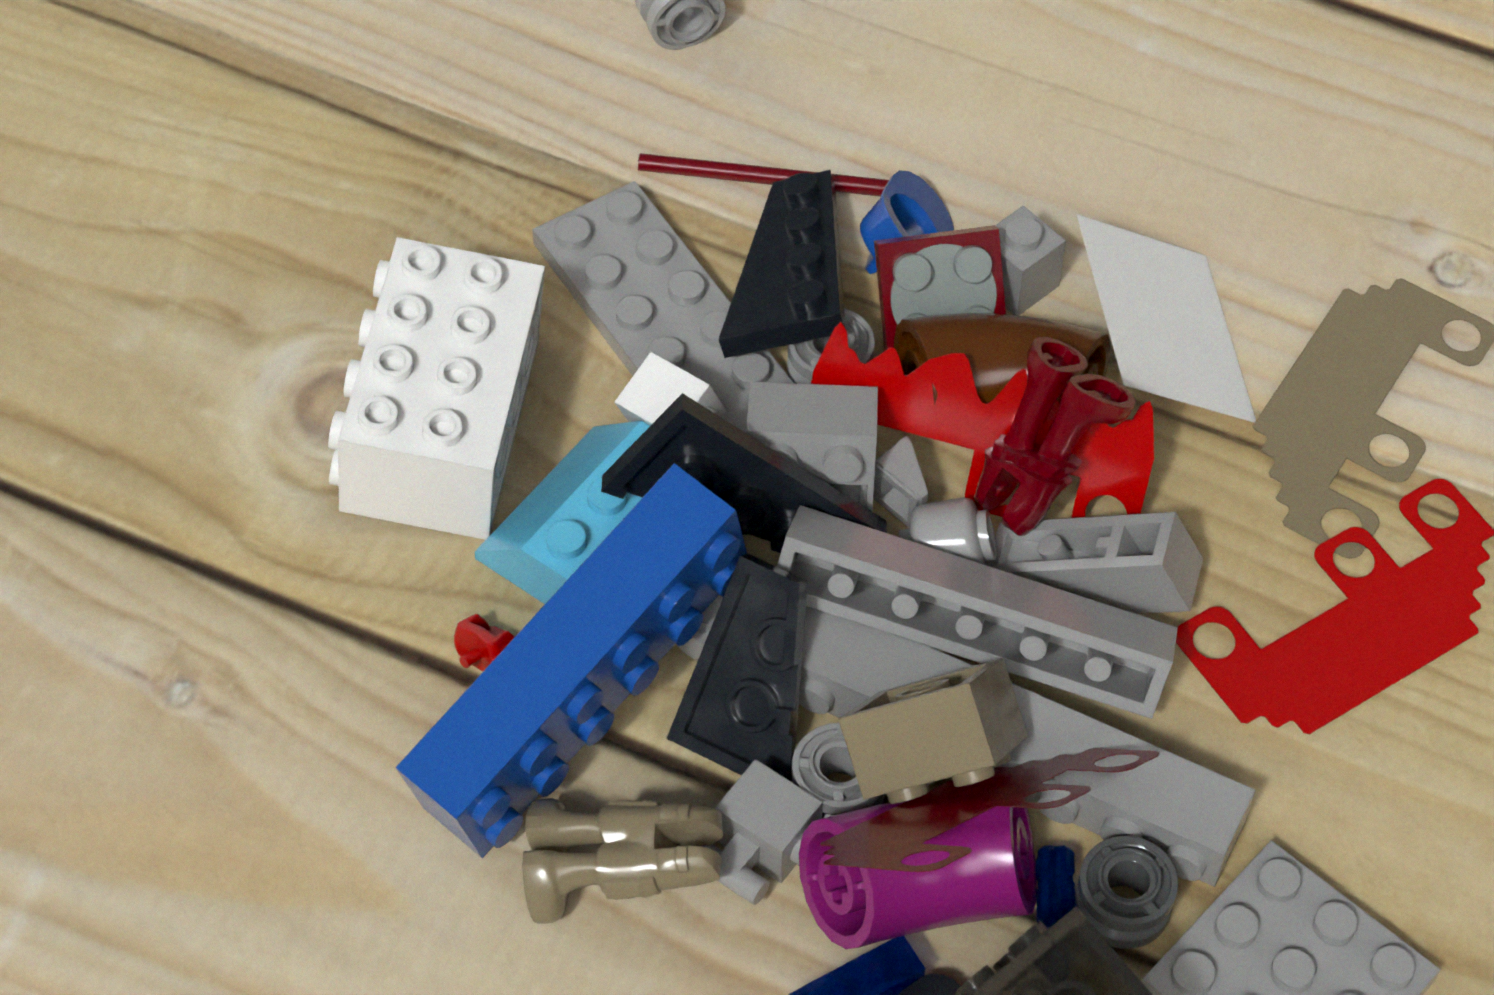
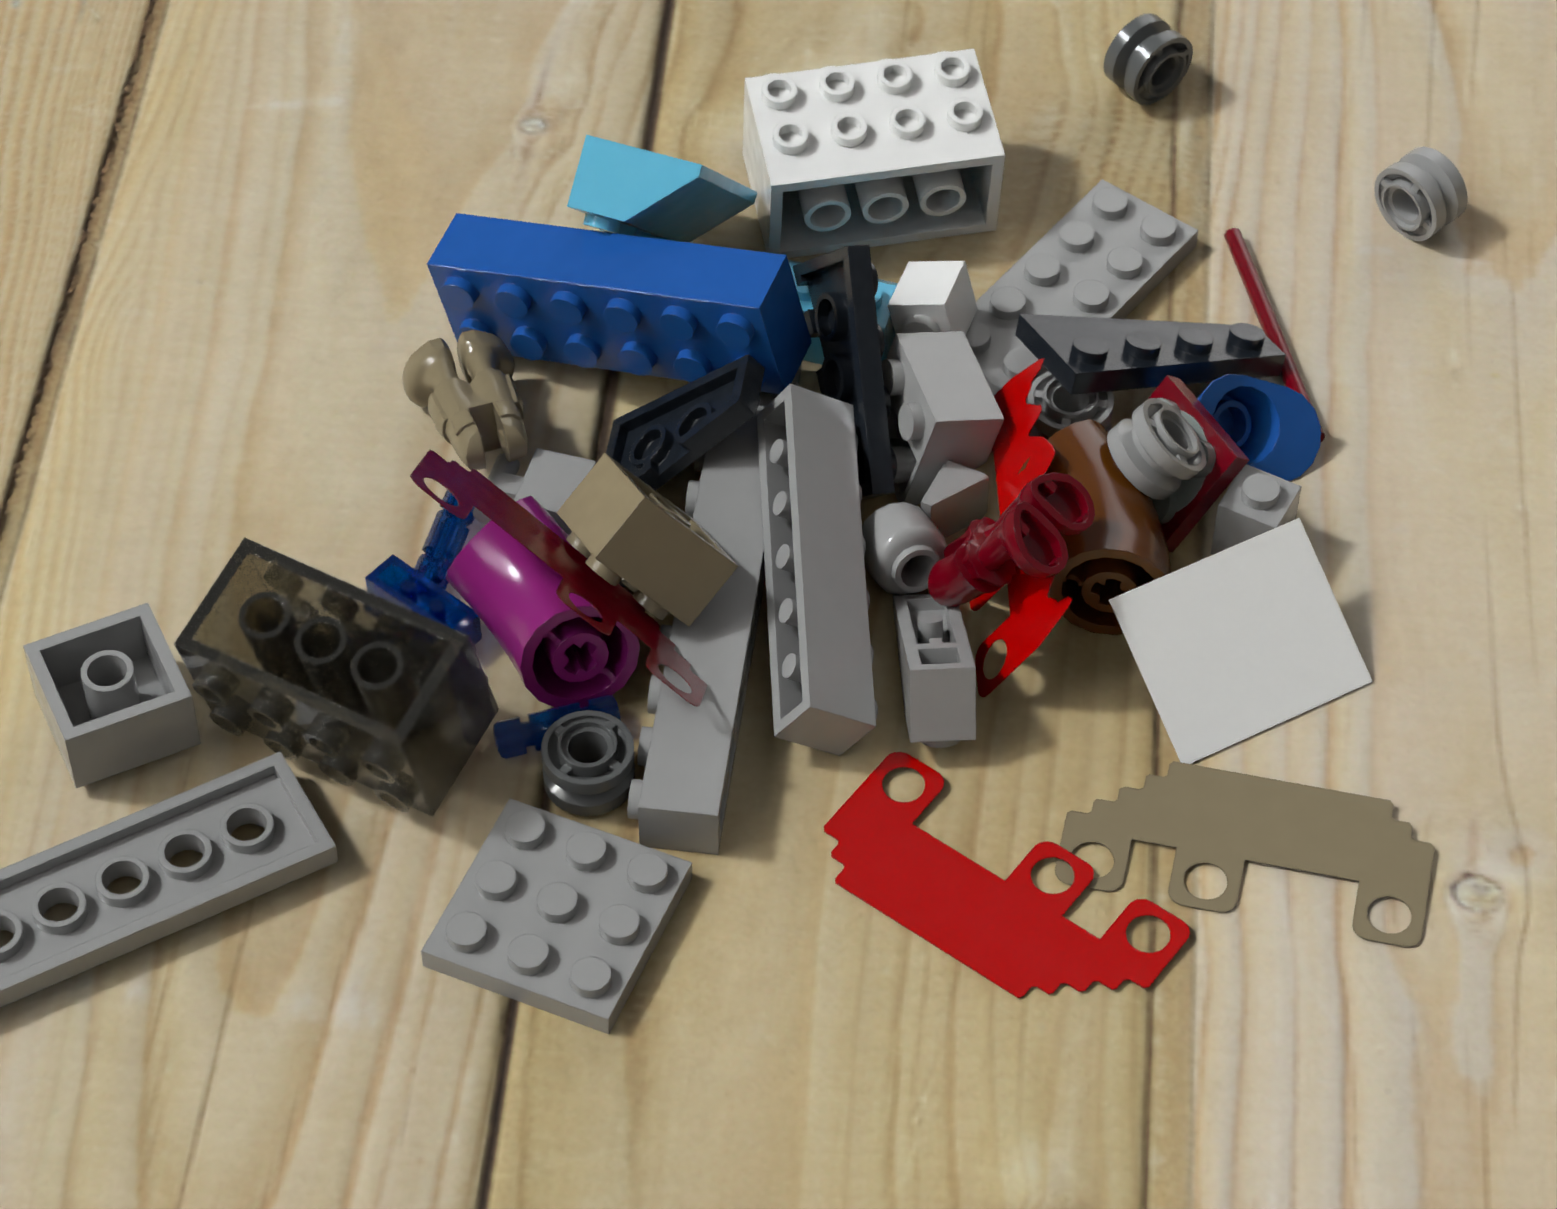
camera: 70 degrees right, 5 degrees down
(403, 135) = (1148, 59): none -> dark grey wheel
(458, 573) = (652, 193): none -> medium azure slope
(764, 941) = (443, 543): none -> clear blue axle
(972, 281) = (1156, 449): none -> light grey wheel

